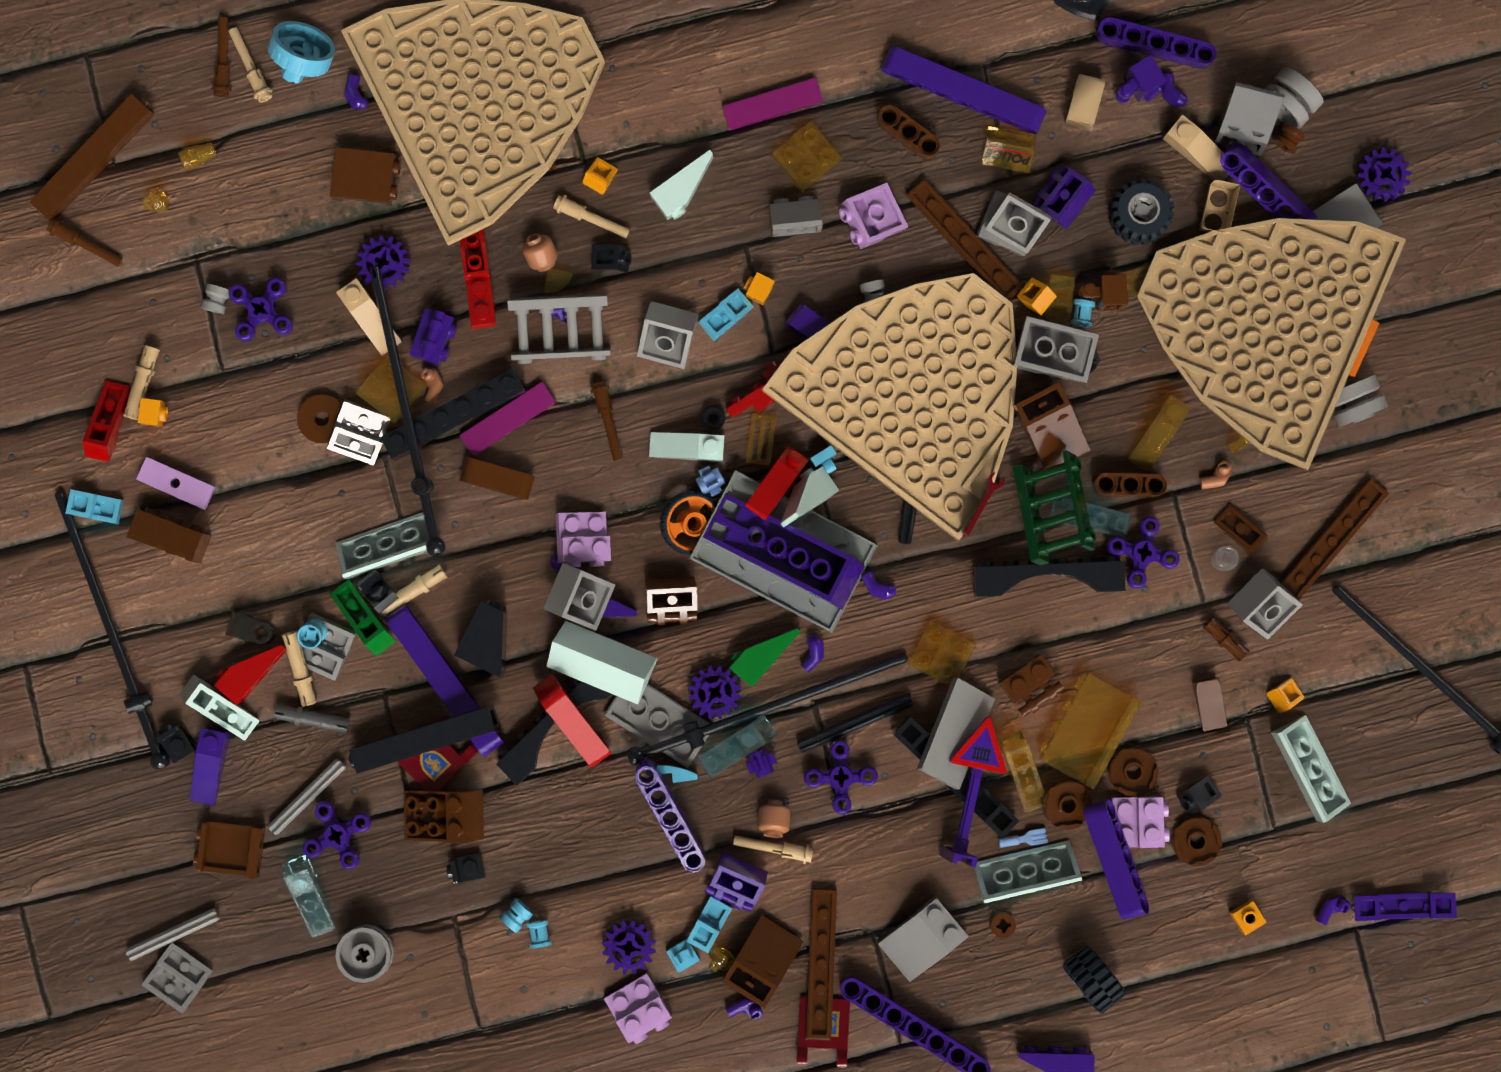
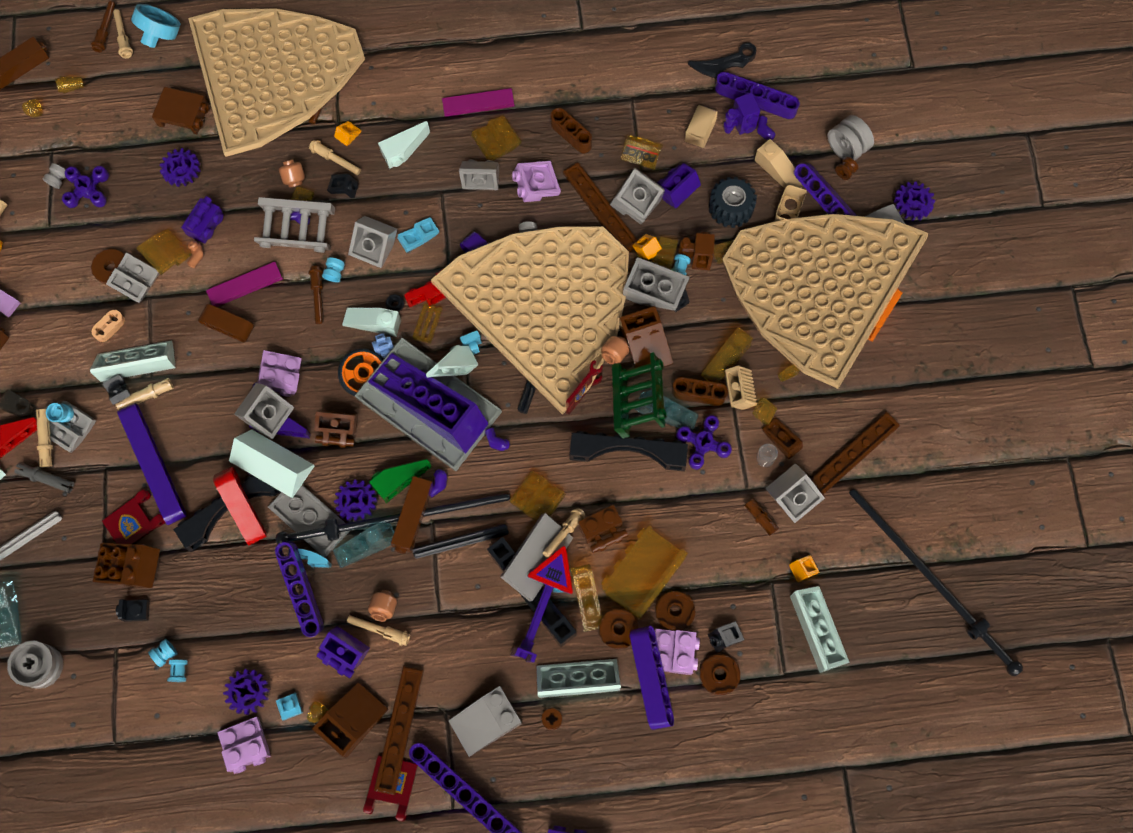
camera: 15 degrees right, 15 degrees down
(345, 506) = (108, 326): none -> light nougat beam
(347, 830) = (35, 564): dark purple gear -> none
(352, 94) = (187, 59): dark purple arm -> none
(362, 618) = (102, 410): green slope -> none
(365, 313) = (160, 200): tan slope -> none
(424, 739) = (122, 501): black brick -> none
(435, 544) = (163, 311): black bar -> none
(456, 412) = (172, 283): black arch -> none
(478, 280) = (245, 185): red slope -> none
(486, 639) = (188, 433): black slope -> none
(623, 377) = (333, 269): none -> medium azure wheel
(709, 924) = (315, 683): medium azure slope -> none
(746, 1006) = (331, 756): dark purple arm -> none
(759, 288) = (445, 218): light orange plate -> none
(761, 763) = (380, 559): dark purple gear -> none
(776, 483) = (431, 349): red slope -> none
(792, 704) = (411, 515): none -> reddish brown brick
(828, 776) = (451, 581): dark purple gear -> none
(963, 90) = (615, 108): dark purple beam -> none
(995, 672) = (568, 527): none -> tan pin
(1014, 448) = (615, 350): none -> nougat head
(1031, 837) = (585, 652): light blue piece -> none
(1094, 979) = (619, 774): black wheel -> none
(1182, 474) = (740, 387): none -> tan brick
(1210, 704) = (743, 565): reddish brown slope -> none
(1215, 499) = (764, 411): none -> clear yellow tile
(1219, 476) = (771, 394): nougat arm -> none
(1240, 913) = (747, 743): light orange plate -> none
(1248, 117) = (818, 143): slope -> none
(1332, 906) = (824, 745): dark purple arm -> none
(1357, 402) = (882, 351): light grey wheel -> none
(1405, 906) = (887, 753): dark purple slope -> none

